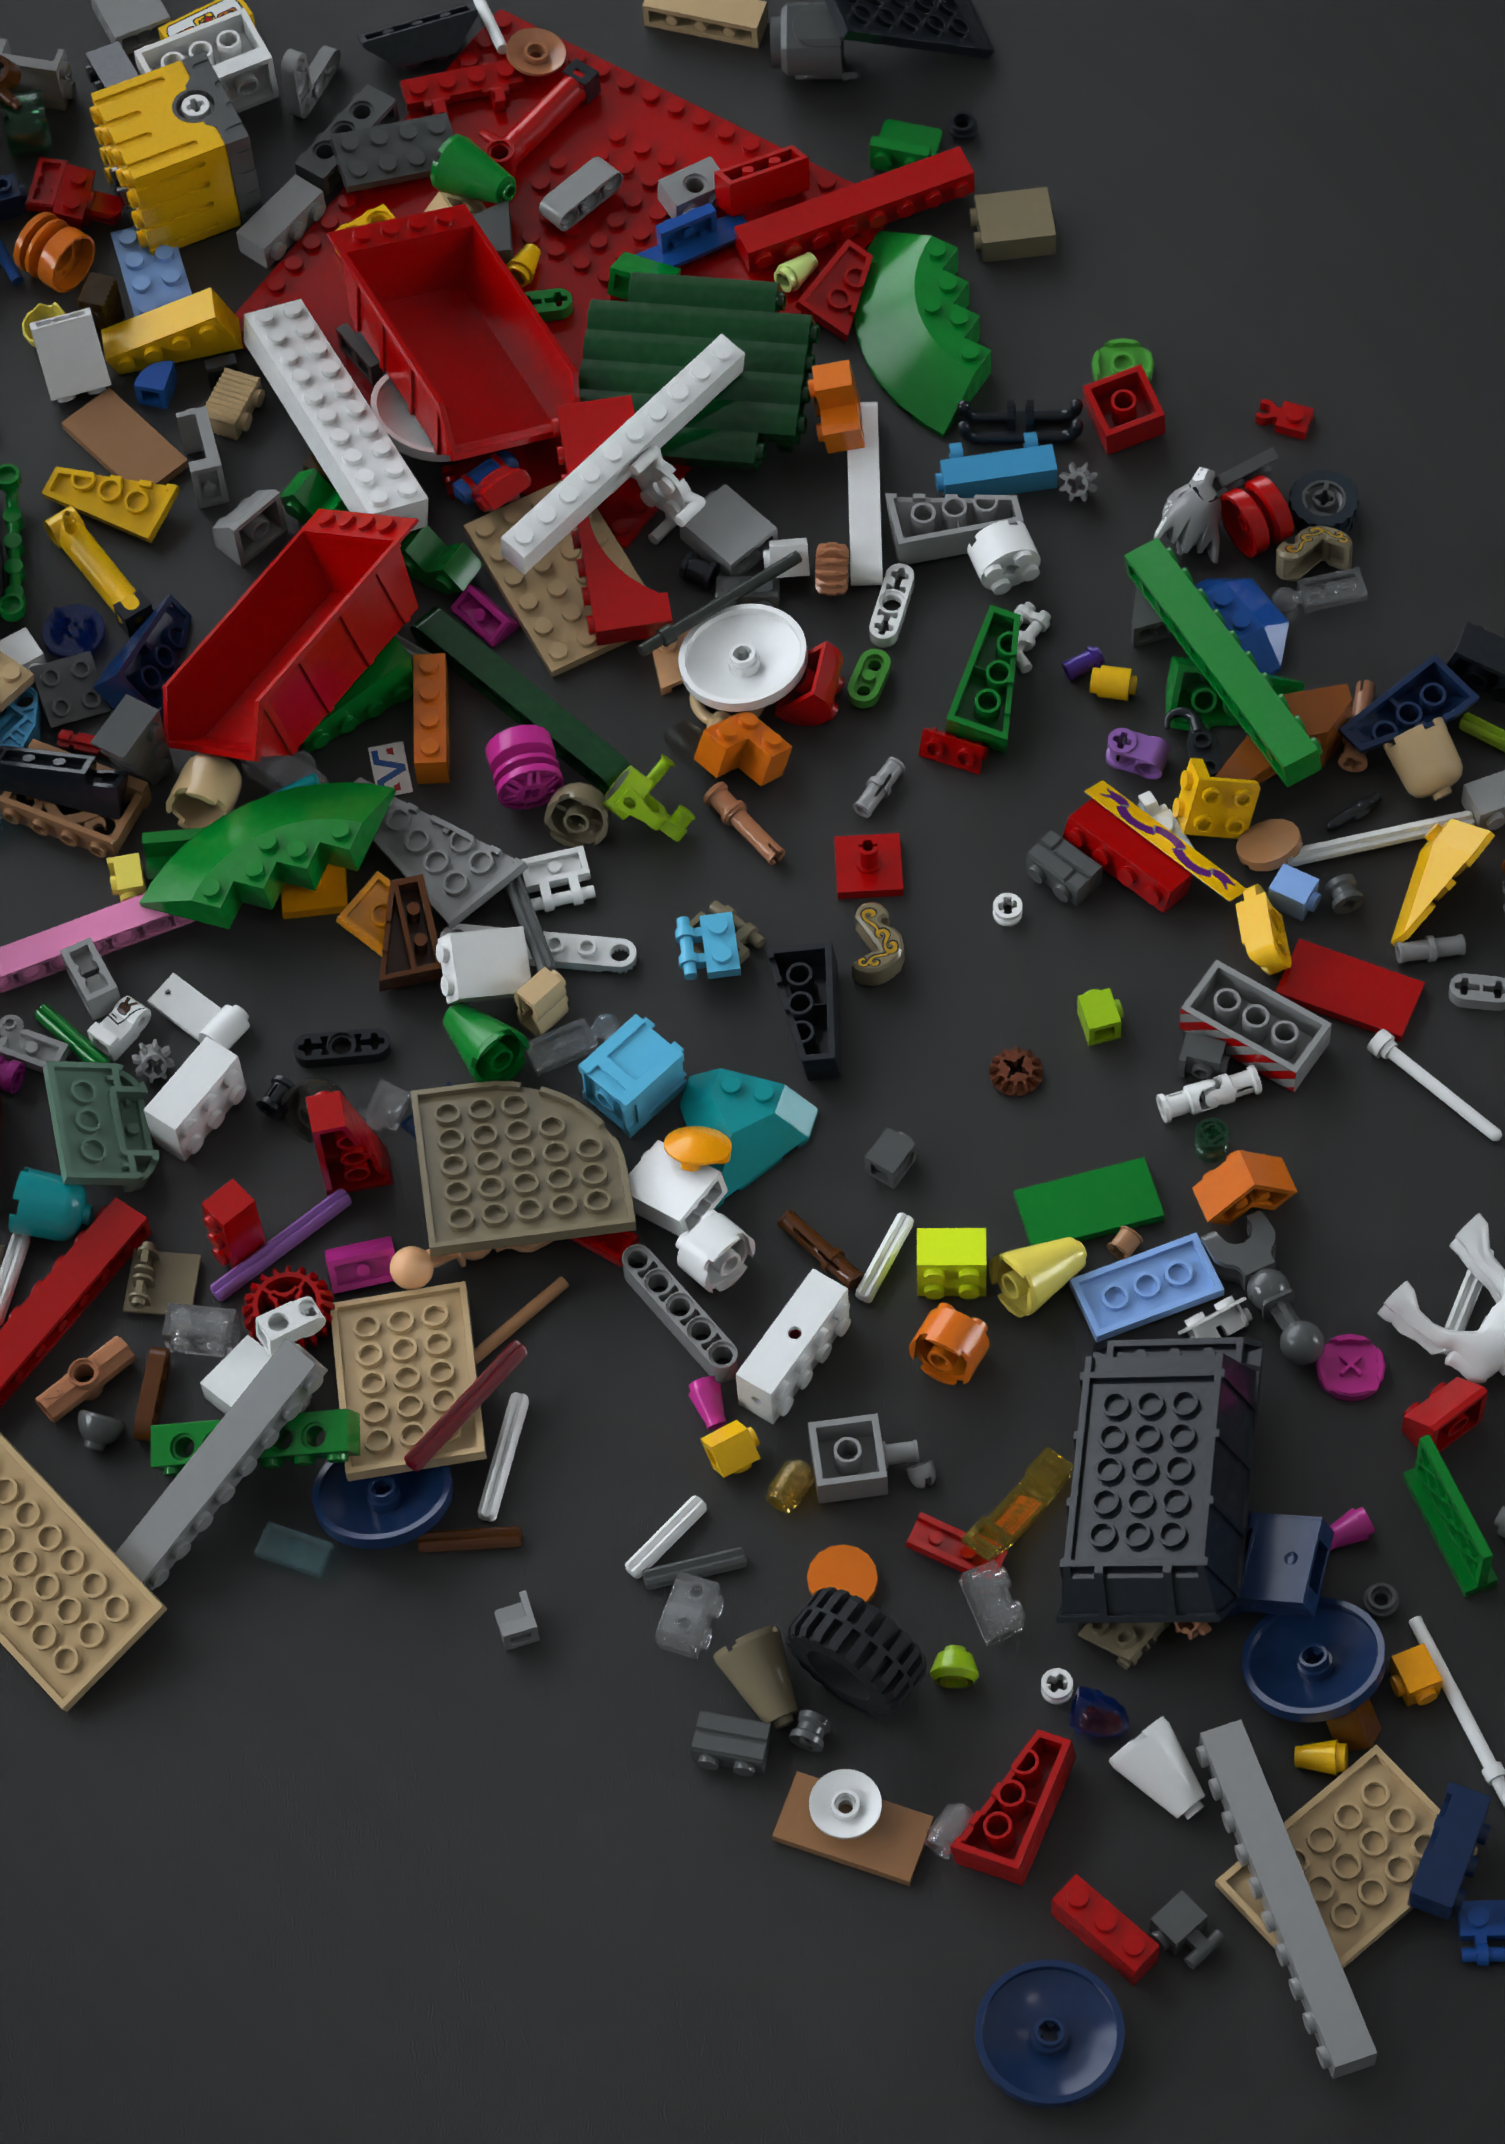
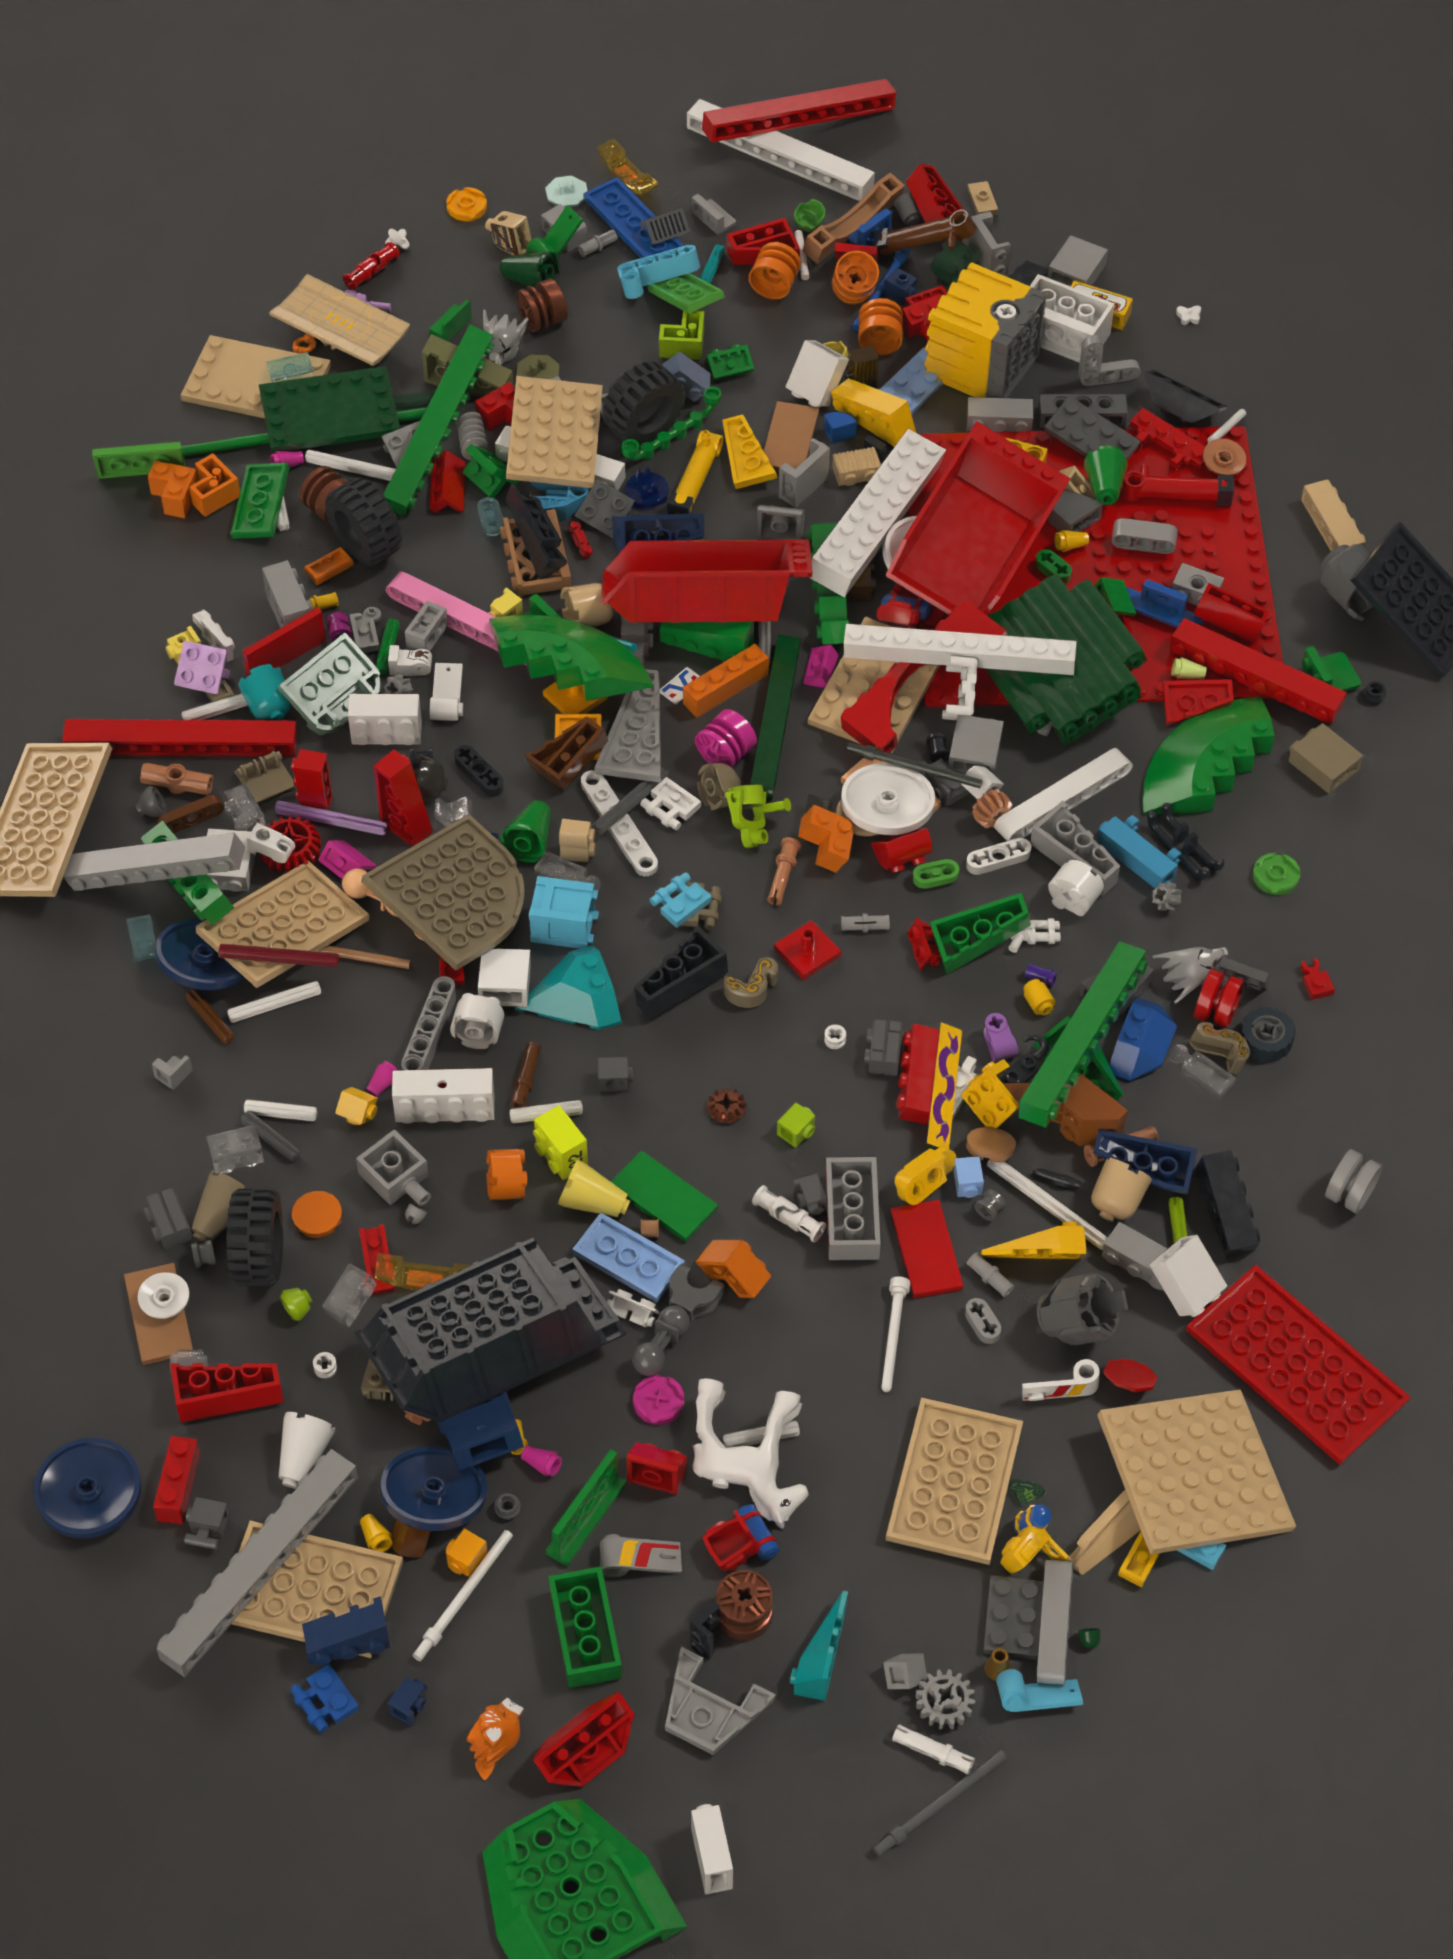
camera: 50 degrees right, 5 degrees down
(136, 740) = (581, 549): dark grey wedge -> none
(483, 964) = (574, 795): white brick -> none
(698, 1147) = (535, 969): light orange dish -> none
(790, 1485) = (352, 1149): clear yellow brick -> none
(838, 405) = (1101, 741): orange brick -> none
(1097, 1714) = (317, 1394): rock -> none
(1124, 409) = (1238, 888): red brick -> none
(1215, 1147) = (752, 1235): clear green wheel -> none

